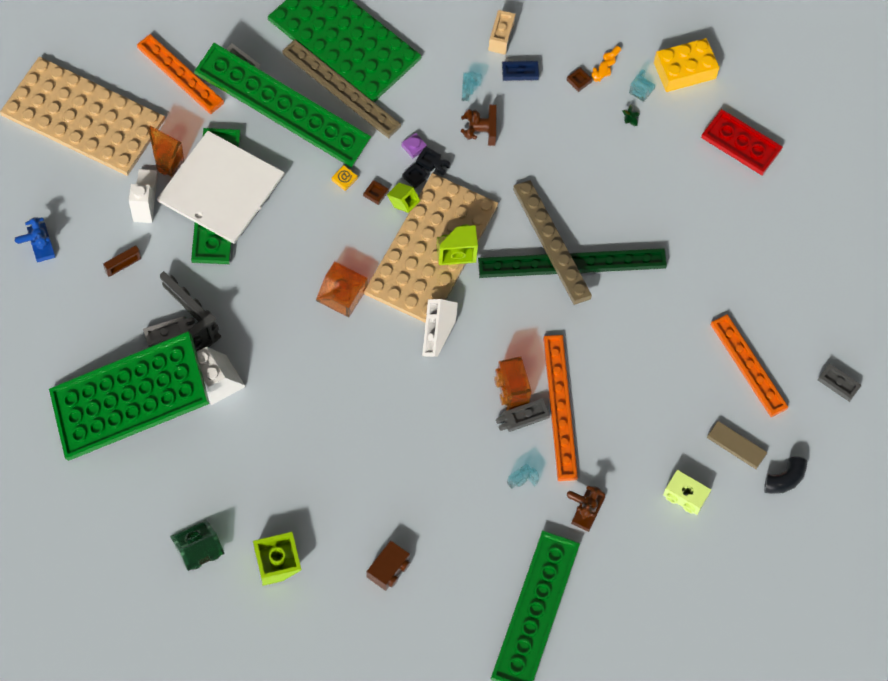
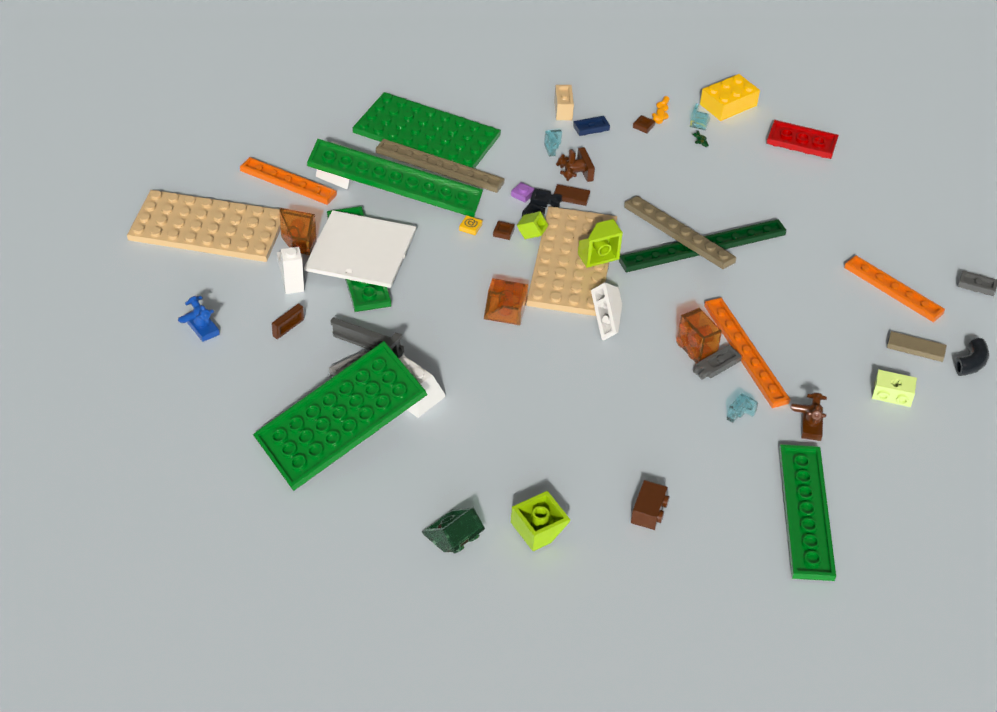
camera: 15 degrees left, 20 degrees down
(463, 161) = (573, 195): none -> reddish brown tile

